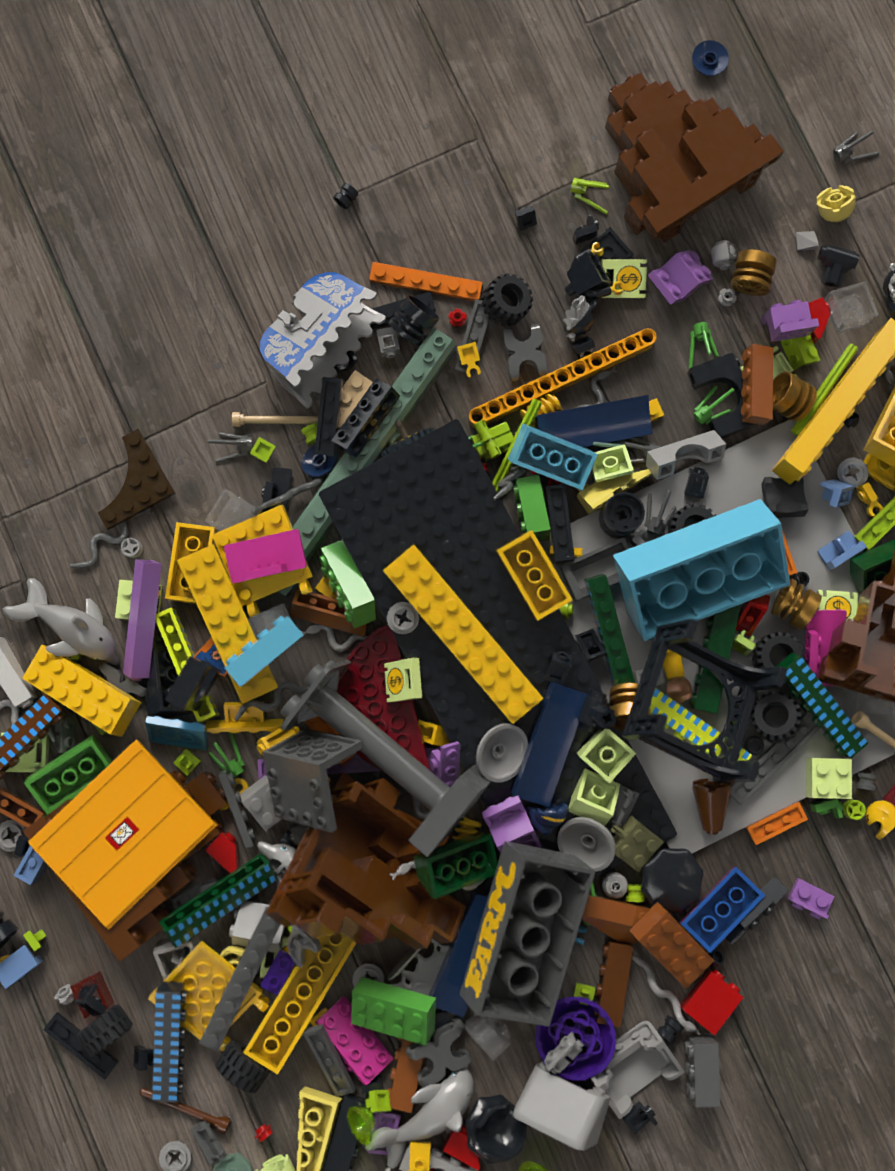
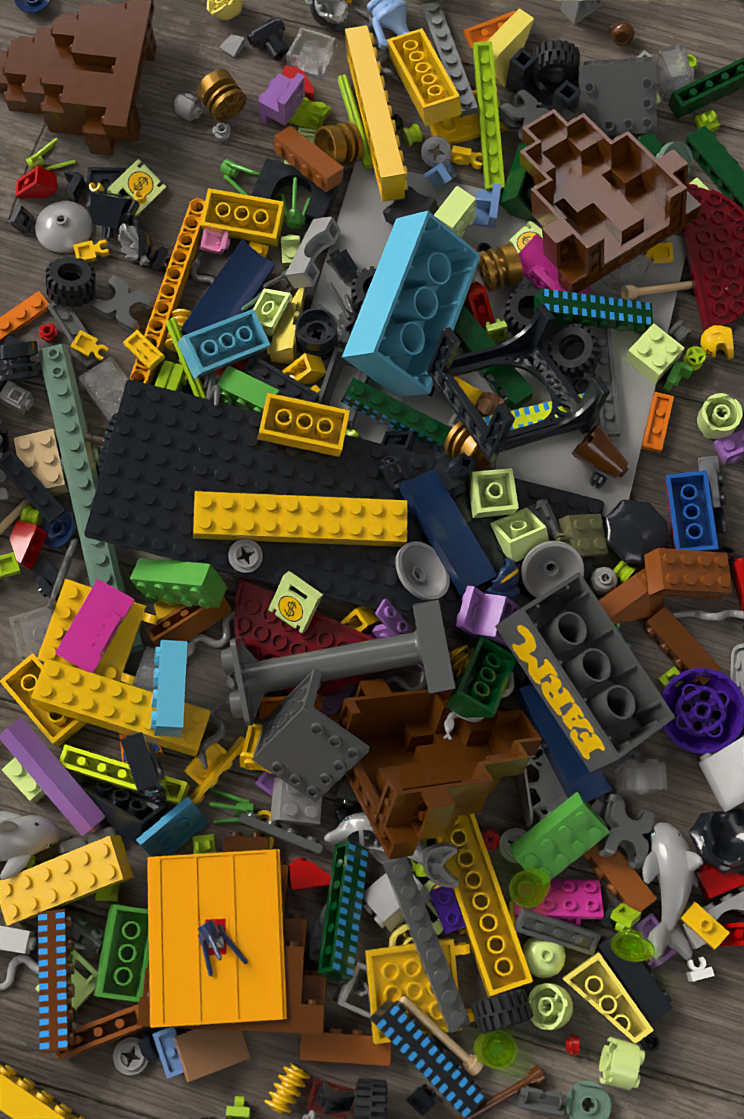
camera: 50 degrees left, 10 degrees down
(46, 888) = (209, 1051): none -> medium nougat tile
(75, 961) = (287, 1089): none -> yellow piece
(116, 829) = (209, 934): none -> dark blue plant
(133, 978) = (344, 1048): none -> dark orange brick
(194, 1072) = (470, 1062): none -> tan piece
(213, 1084) = (496, 1049): none -> clear neon green piece
(274, 1097) = (550, 1006): none -> yellowish green cylinder
(289, 449) = (27, 543): none -> red slope
(303, 1064) = (543, 957): none -> yellowish green cylinder
(340, 1018) = (529, 888): none -> clear neon green piece
(357, 952) = (490, 833): none -> red plate
(366, 418) = (59, 457): black brick -> none
(450, 401) = (105, 386): none -> clear brick
(487, 439) = (165, 382): lime pin -> none
(499, 401) = (143, 350): none -> yellow plate
(543, 263) = (61, 236): none -> light grey dish
(543, 288) = (89, 251): none -> yellow plate
(556, 1058) = (704, 719): light grey hinge -> none
(562, 203) = (36, 184): none -> red slope
(587, 530) = (306, 369): none -> yellow arch
(632, 373) = (214, 241): none -> bright pink bracket
(669, 377) = (243, 216): none -> yellow brick
(677, 432) = (289, 245): none -> yellowish green bracket
(680, 276) = (174, 146): medium lavender bracket -> none
(691, 816) = (597, 478): none -> black hinge
(809, 534) = (457, 211): none -> yellowish green brick
(830, 862) = (719, 416): none -> yellowish green brick
(851, 441) = (411, 134): none -> lime wheel

